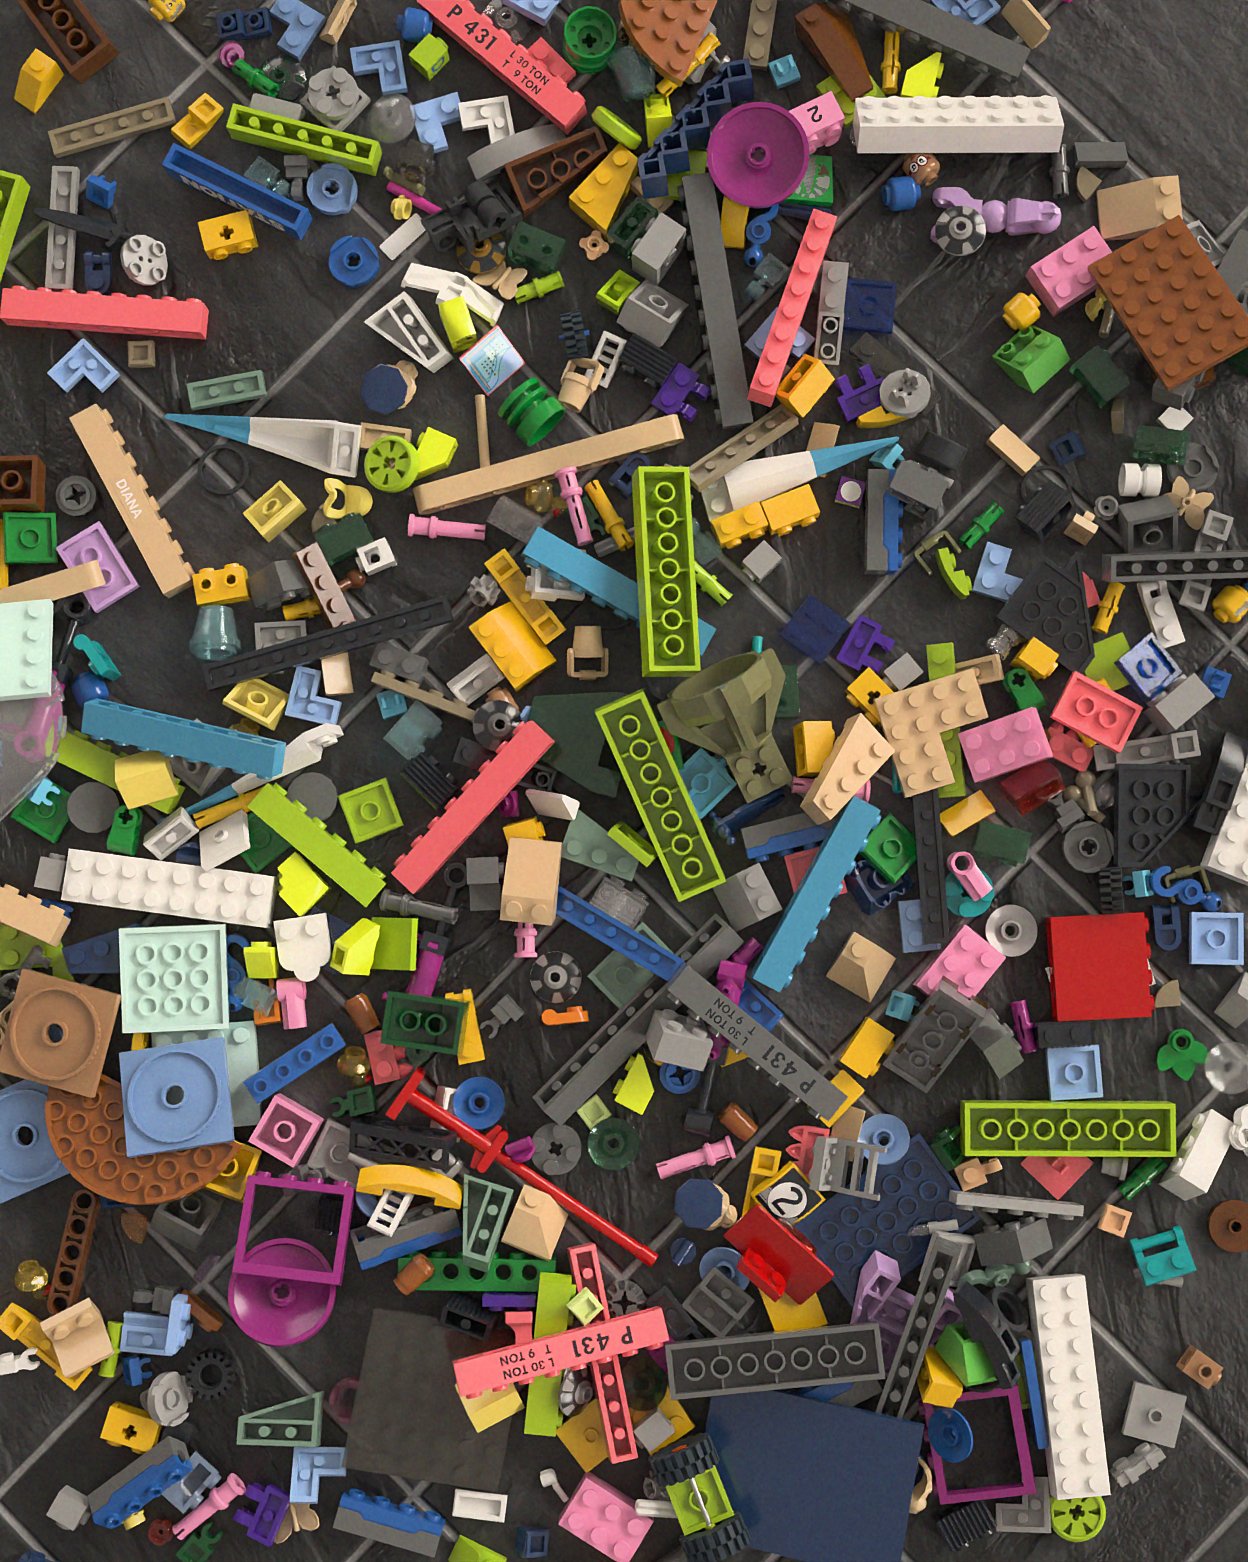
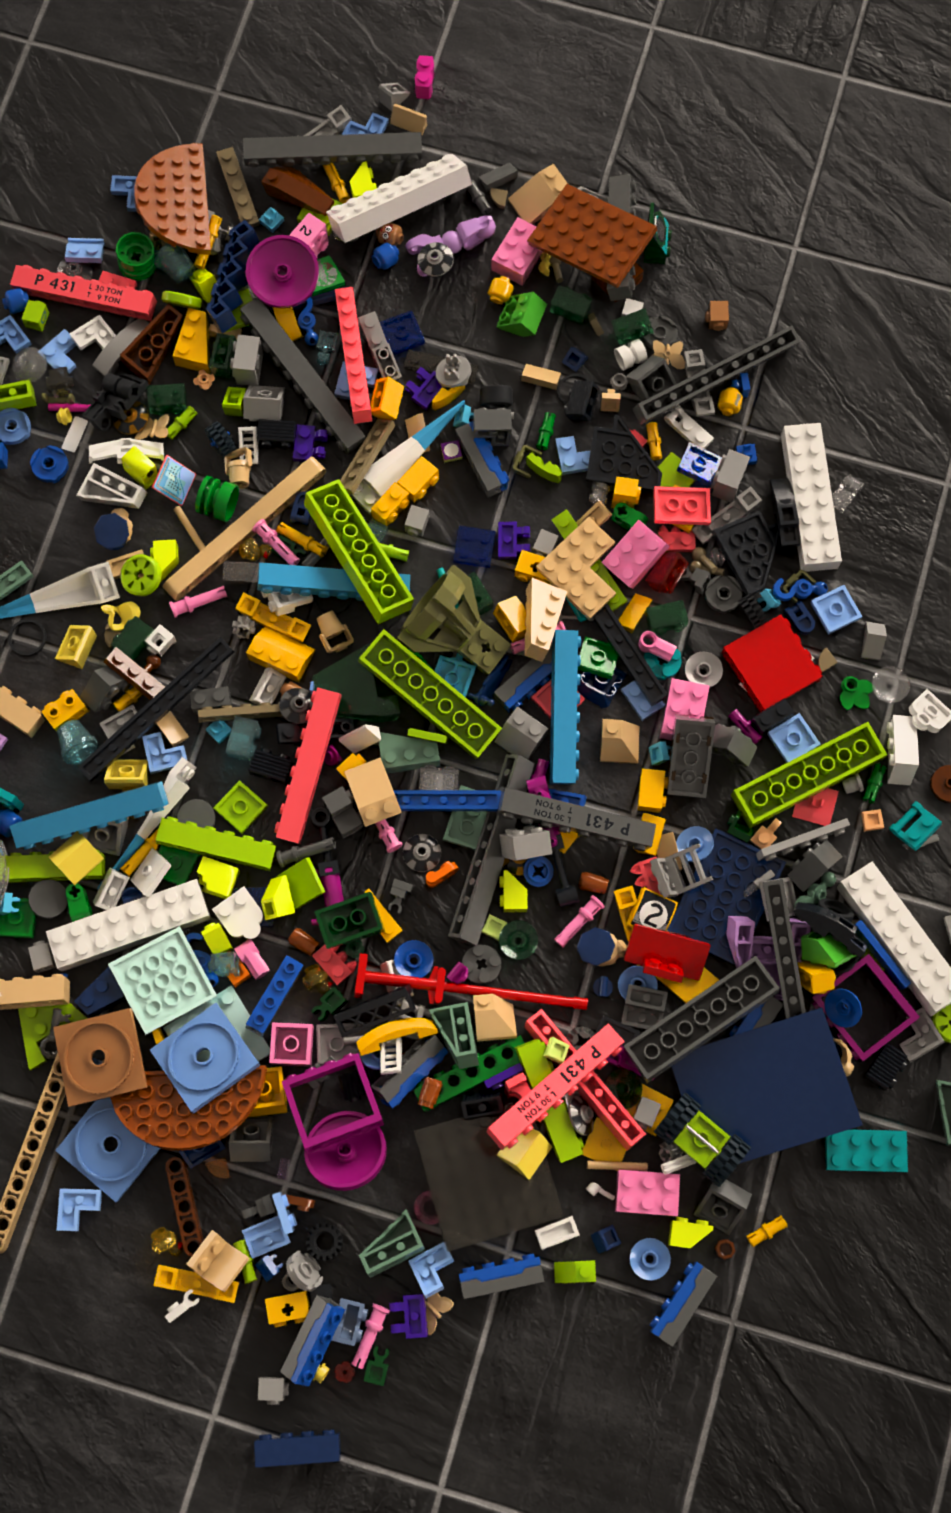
camera: 35 degrees left, 10 degrees down
(588, 1468) = (607, 1165): none -> tan bar

